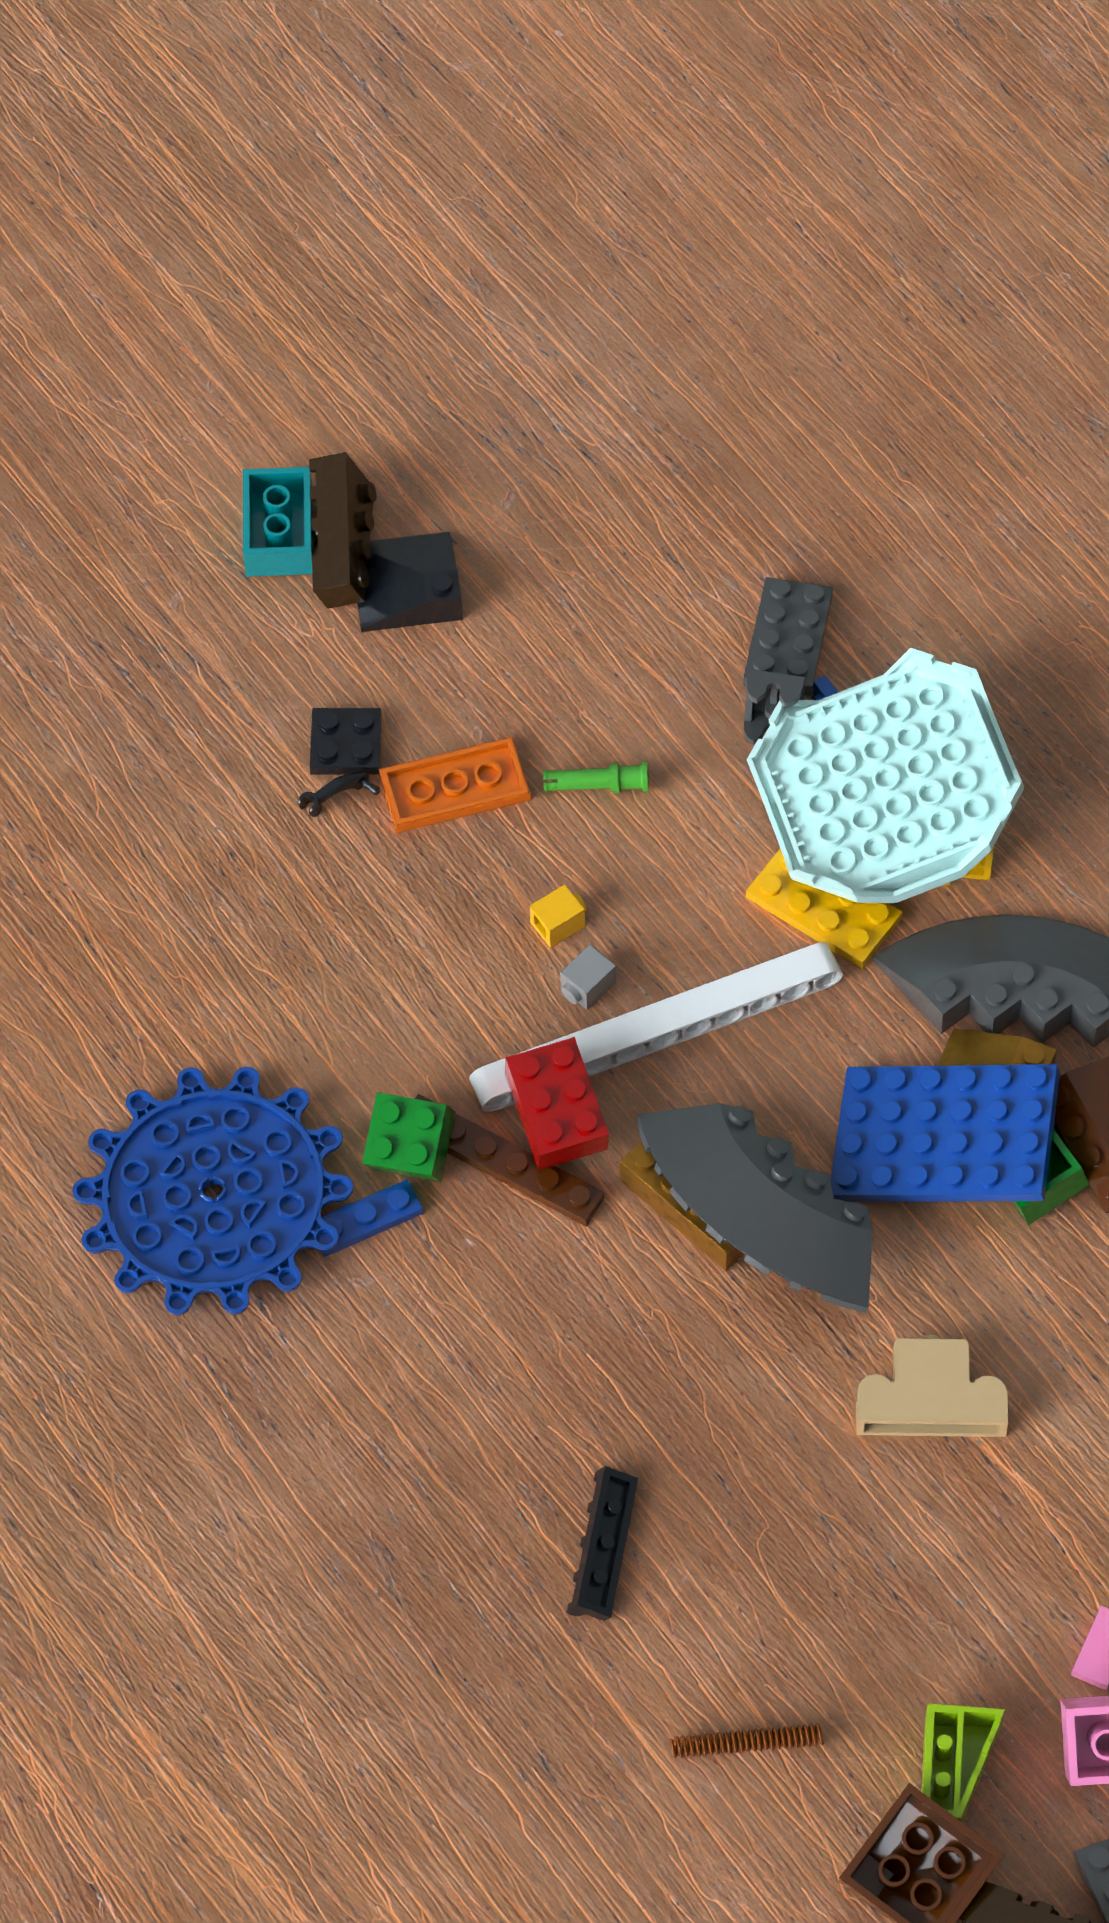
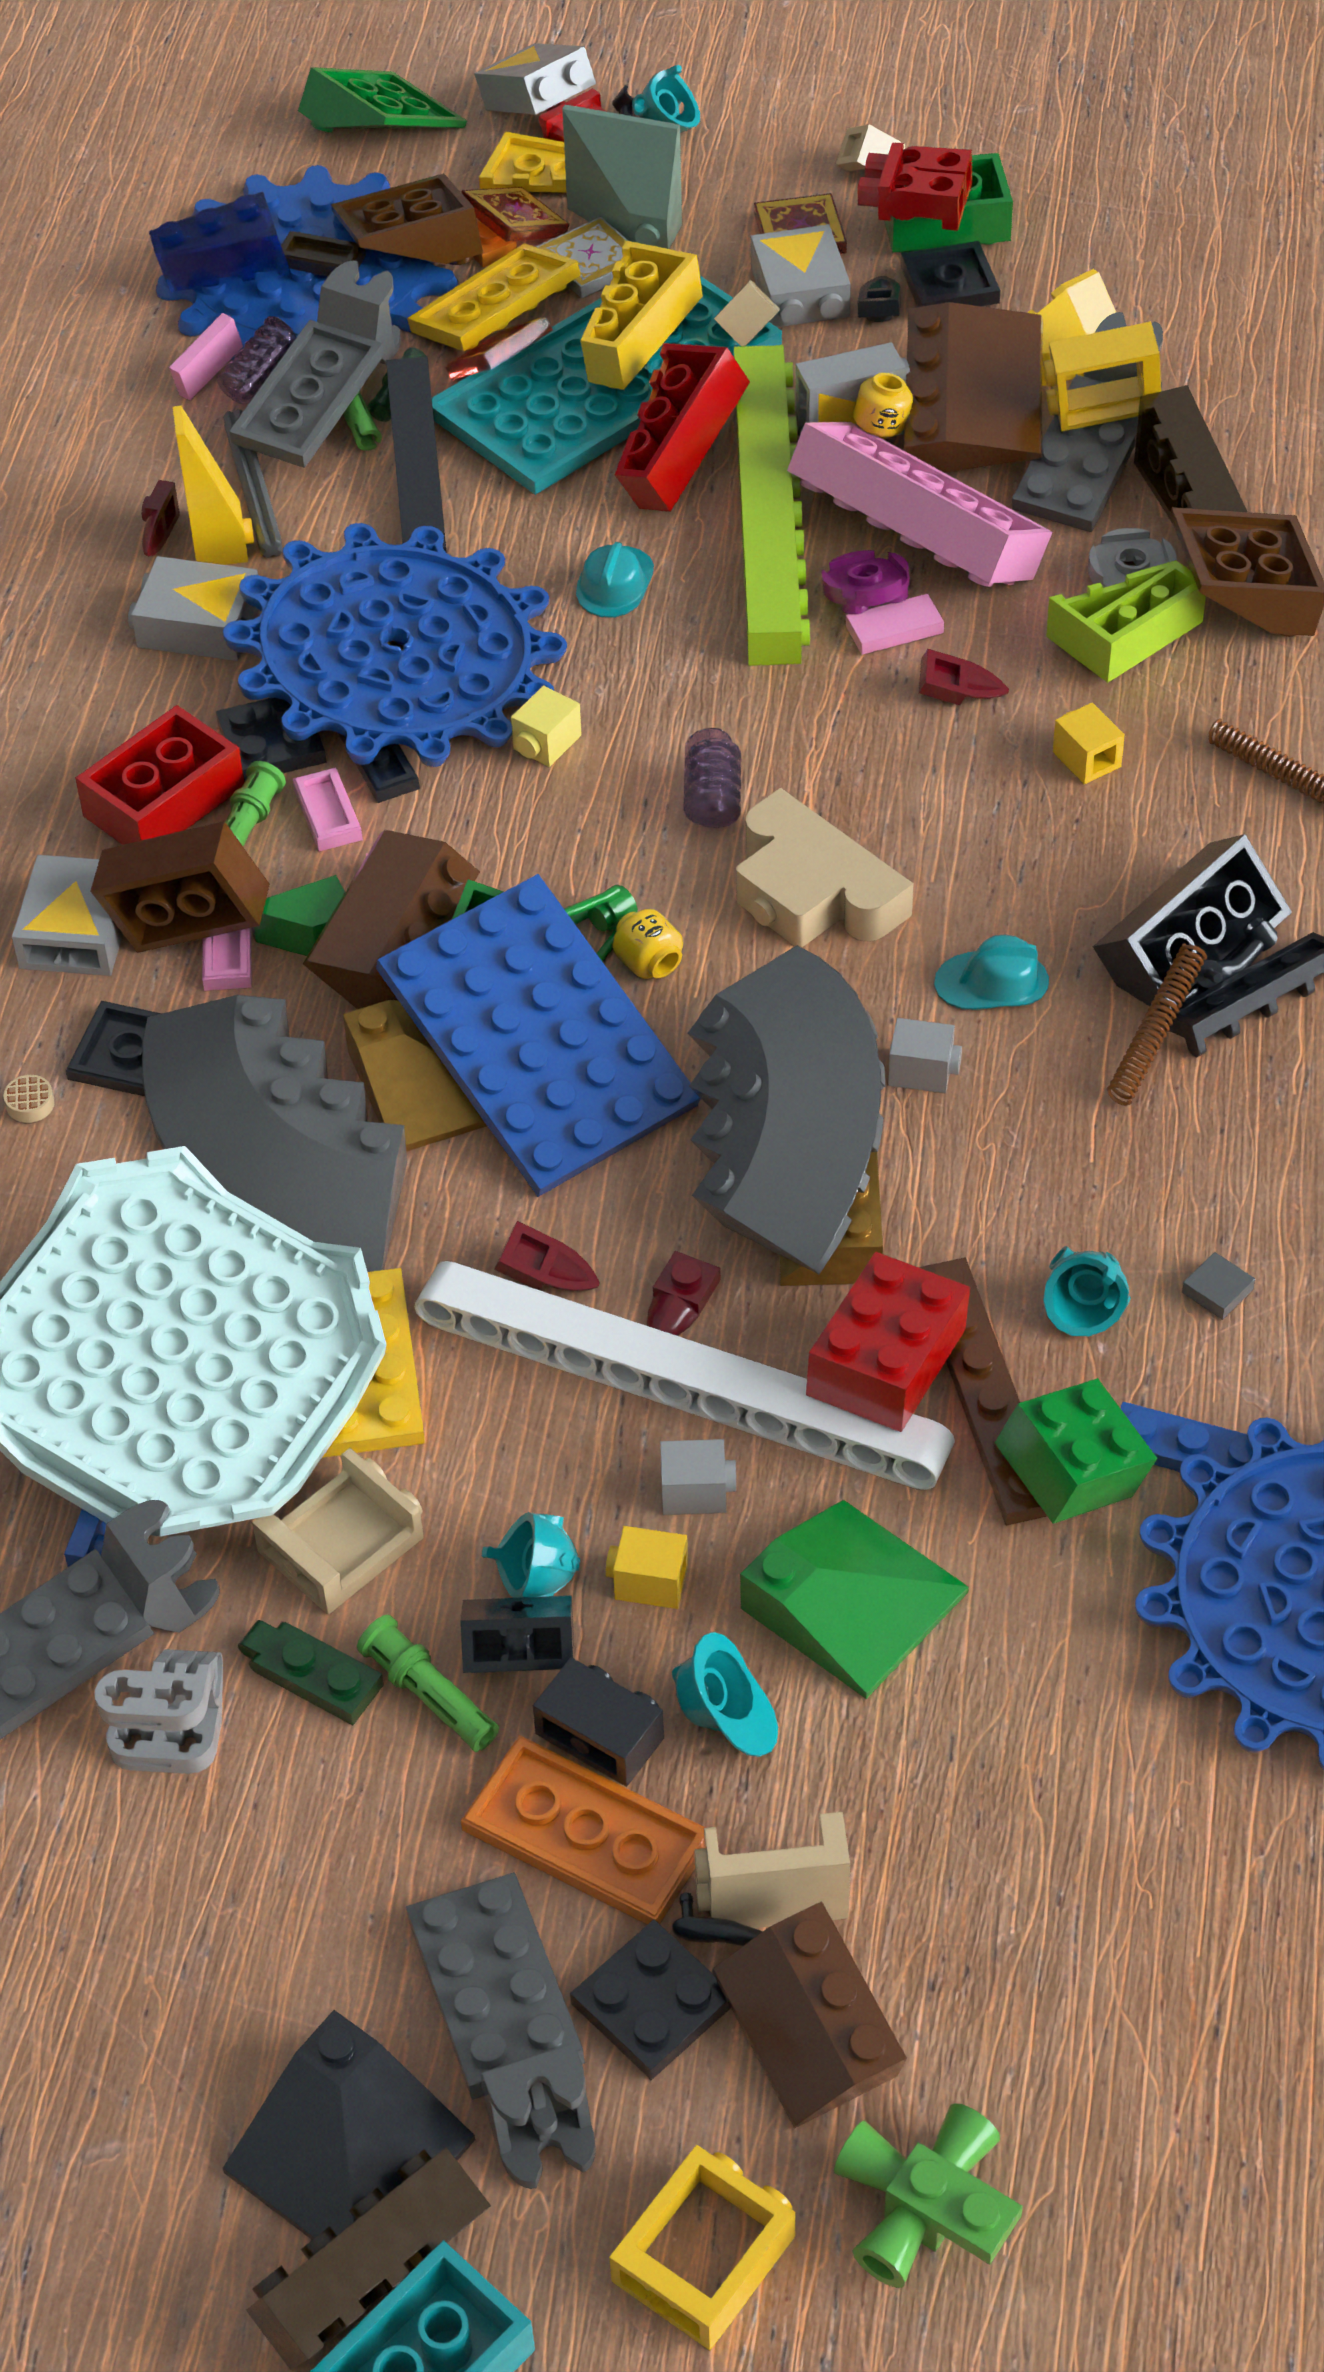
camera: 135 degrees left, 10 degrees down
(138, 749) = (928, 2194): none -> bright green brick
(213, 632) = (672, 2296): none -> yellow window
(260, 780) = (809, 2015): none -> reddish brown slope
(331, 807) = (775, 1884): none -> tan panel
(393, 668) = (507, 2023): none -> dark grey hinge
(440, 1325) = (1218, 1285): none -> dark grey tile
(447, 881) = (724, 1696): none -> teal piece
(453, 991) = (848, 1595): none -> green slope
(495, 820) = (599, 1721): none -> black brick
(501, 1249) = (1085, 1292): none -> teal helmet
(578, 825) = (516, 1634): none -> black brick
(610, 872) = (535, 1556): none -> teal helmet
(632, 1459) = (1115, 1082): none -> dark orange piece
(637, 1577) = (1261, 937): none -> black piece
(664, 744) = (311, 1669): none -> dark green hinge
(679, 1552) = (1197, 906): none -> black slope
(692, 654) = (165, 1707): none -> light grey piece
(711, 1077) = (681, 1293): none -> dark red plate
(723, 808) = (342, 1533): none -> tan panel
(737, 1324) = (923, 1055): none -> light grey brick
(762, 1426) = (996, 975): none -> teal piece
(795, 1027) = (542, 1260): none -> dark red plate
(881, 1643) = (1088, 743): none -> yellow brick
(968, 1264) = (648, 944): none -> yellow head
(1011, 1628) = (956, 679): none -> dark red plate
(1016, 1270) = (604, 912): none -> green plant
(1031, 1827) = (1125, 545): none -> light grey plate
(1059, 1406) = (712, 779): none -> clear purple piece

